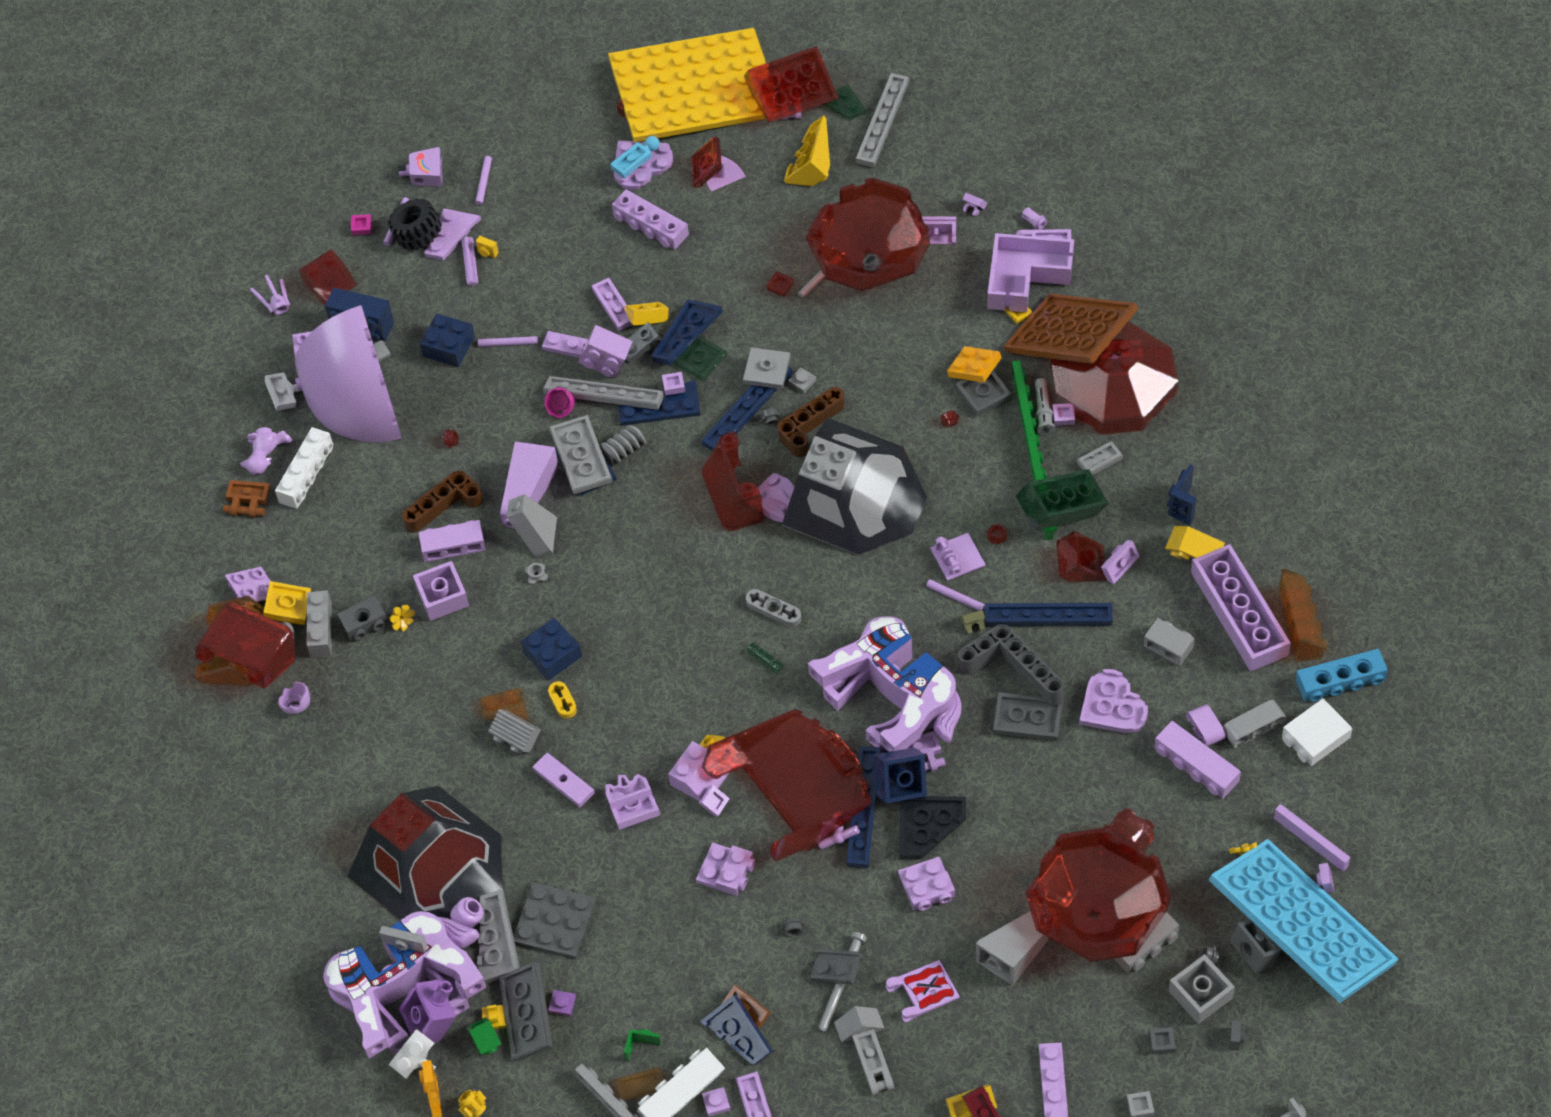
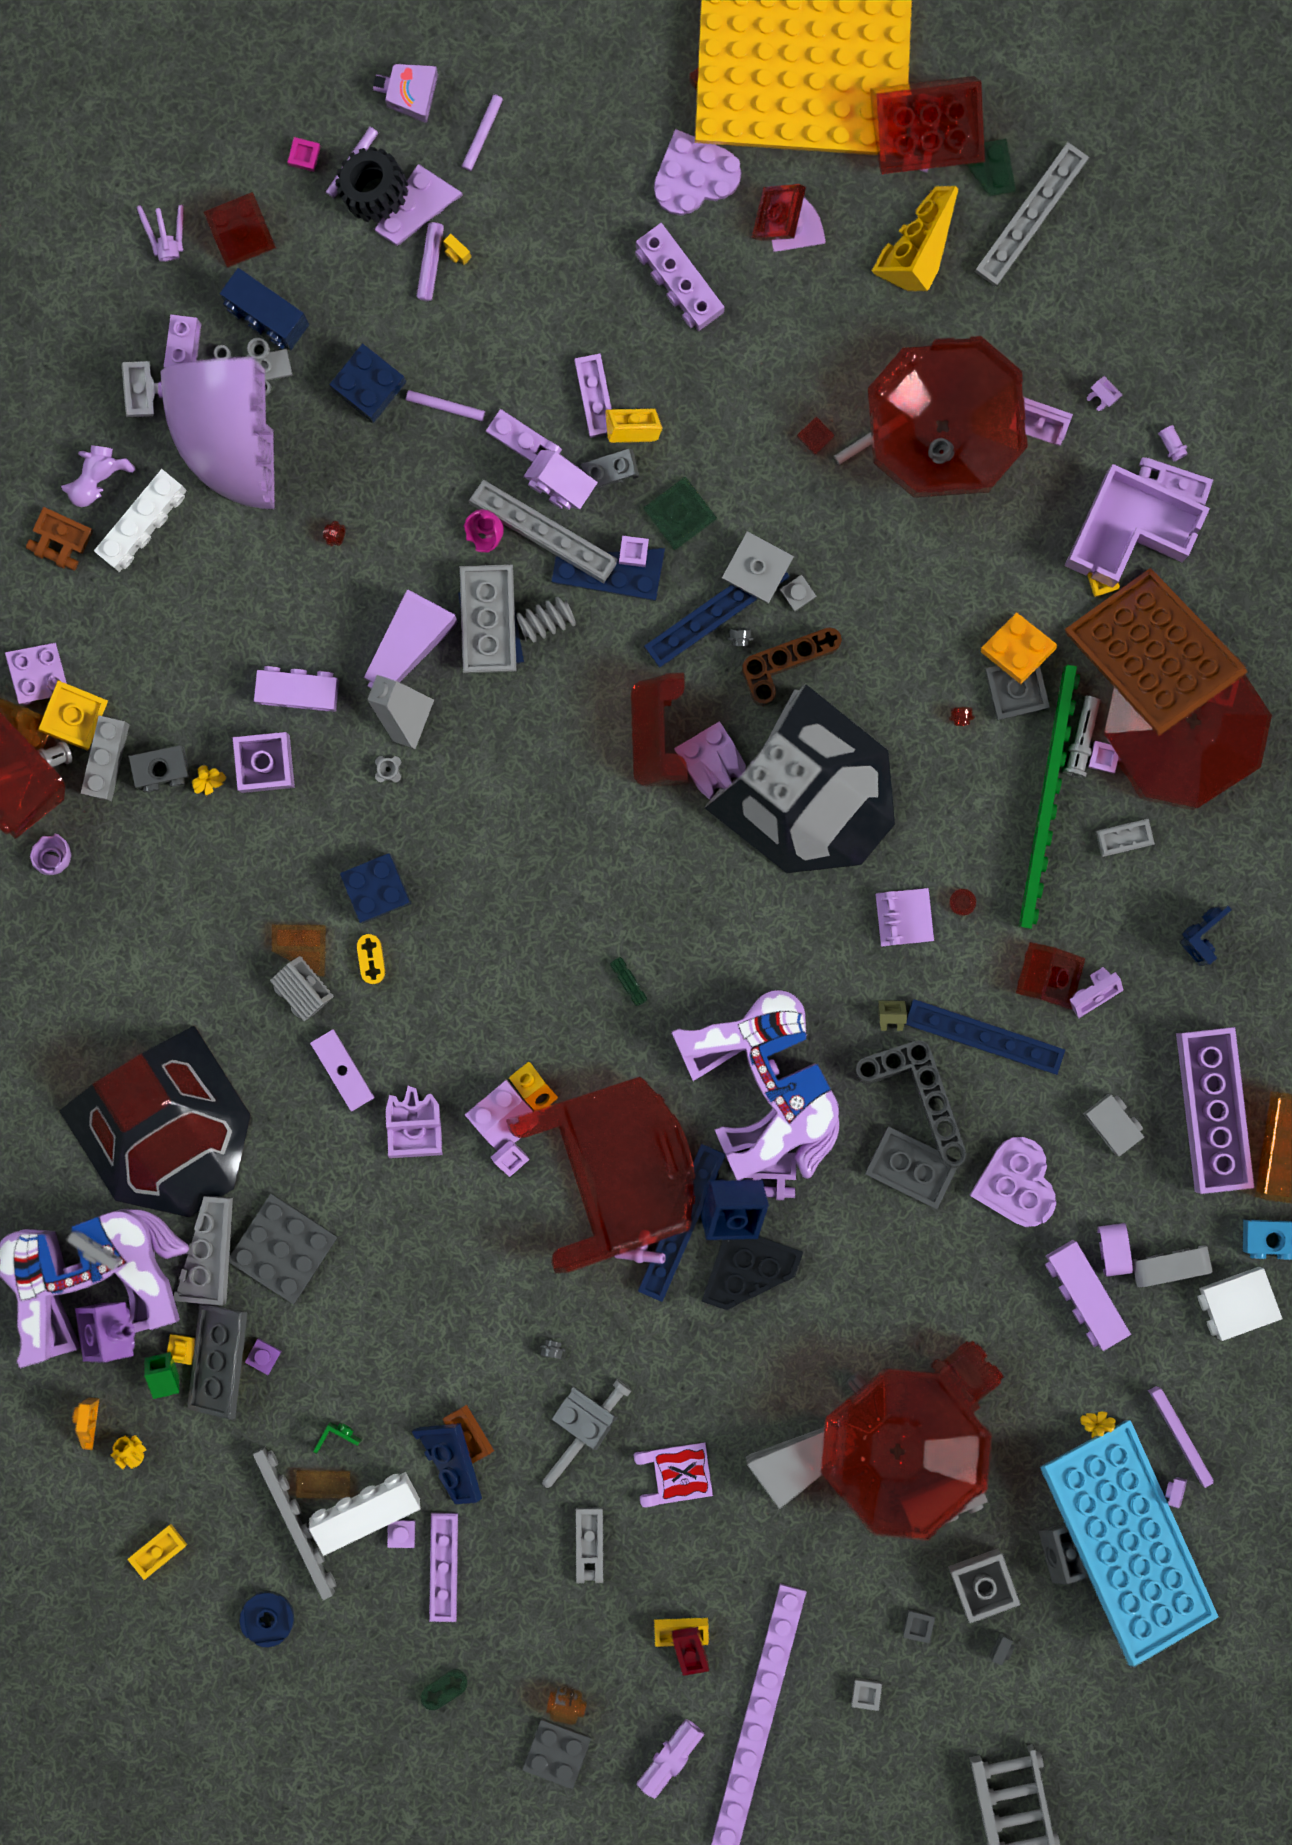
camera: 10 degrees right, 30 degrees up
(412, 1054) = (76, 1374): white plate -> none
(417, 516) = (294, 631): reddish brown beam -> none
(467, 912) = (181, 1218): lavender head -> none
(635, 157) = (688, 172): medium azure plate -> none
(684, 330) = (677, 466): dark blue wing -> none
(726, 868) = (498, 1249): lavender plate -> none
(770, 600) = (641, 905): light grey beam -> none
(858, 1021) = (589, 1494): light grey slope -> none
(927, 884) = (722, 1345): lavender plate -> none
(955, 595) = (884, 971): lavender bar -> none
(1061, 499) = (1054, 898): clear green brick -> none
(1191, 543) = (1190, 1008): yellow slope -> none
(1211, 953) = (1008, 1541): dark grey plate -> none

